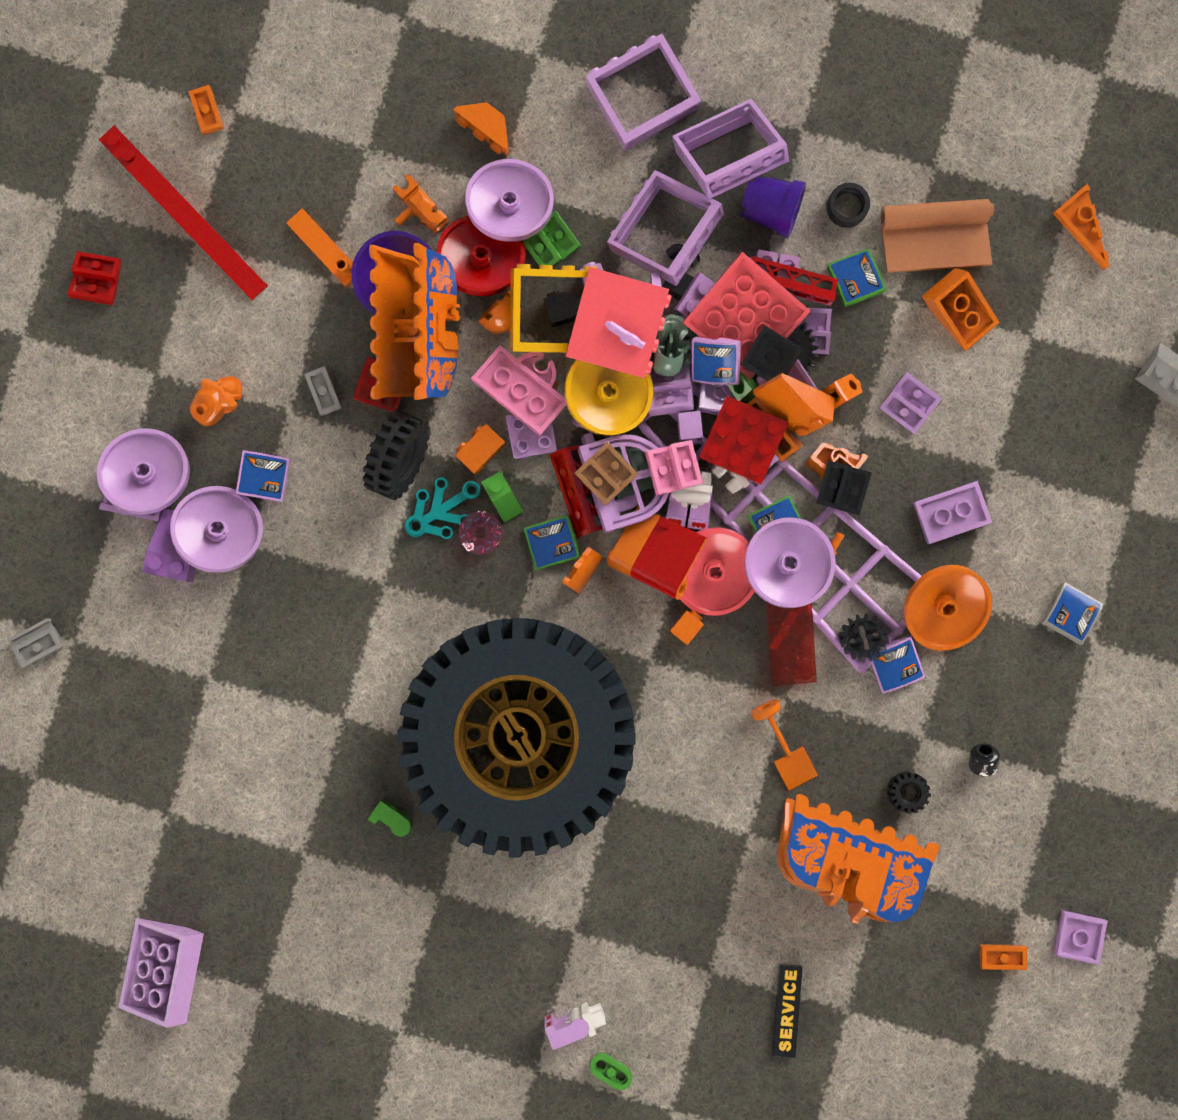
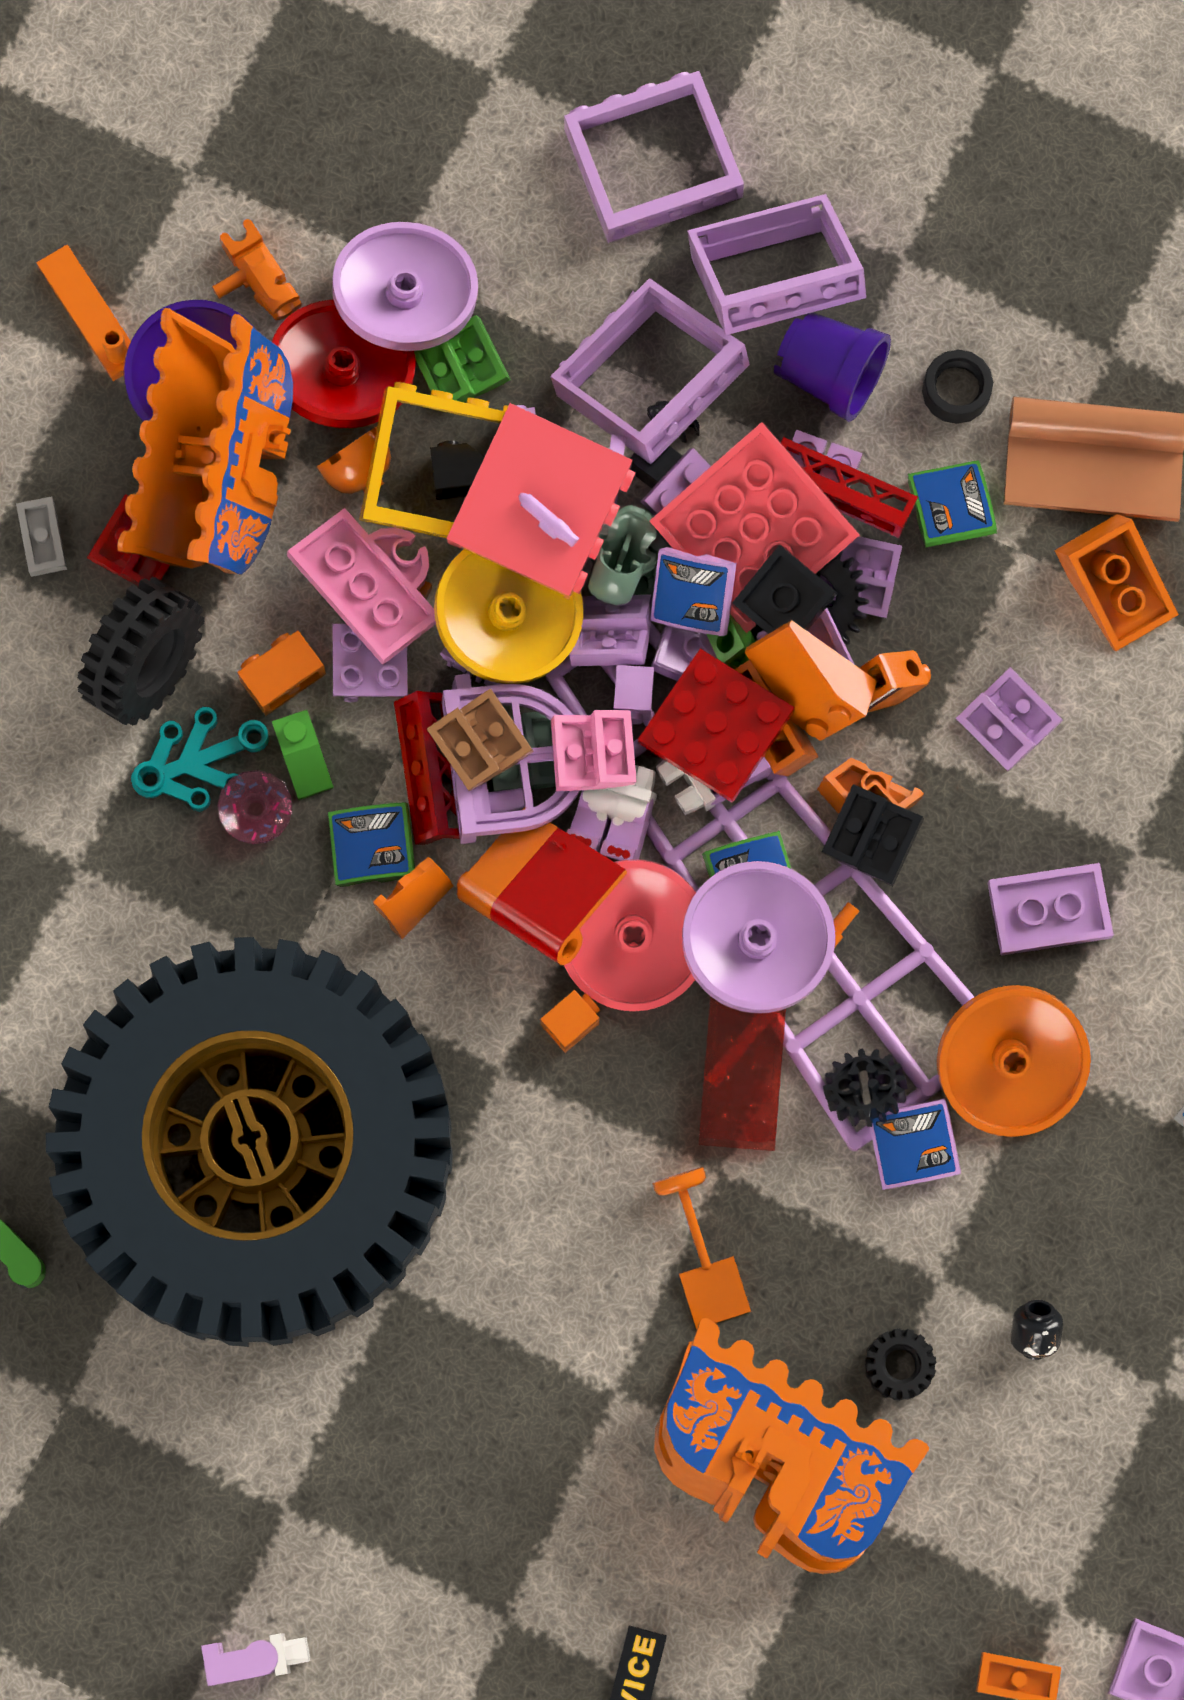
camera: 10 degrees right, 10 degrees down
(486, 125) = (389, 164): orange slope -> none

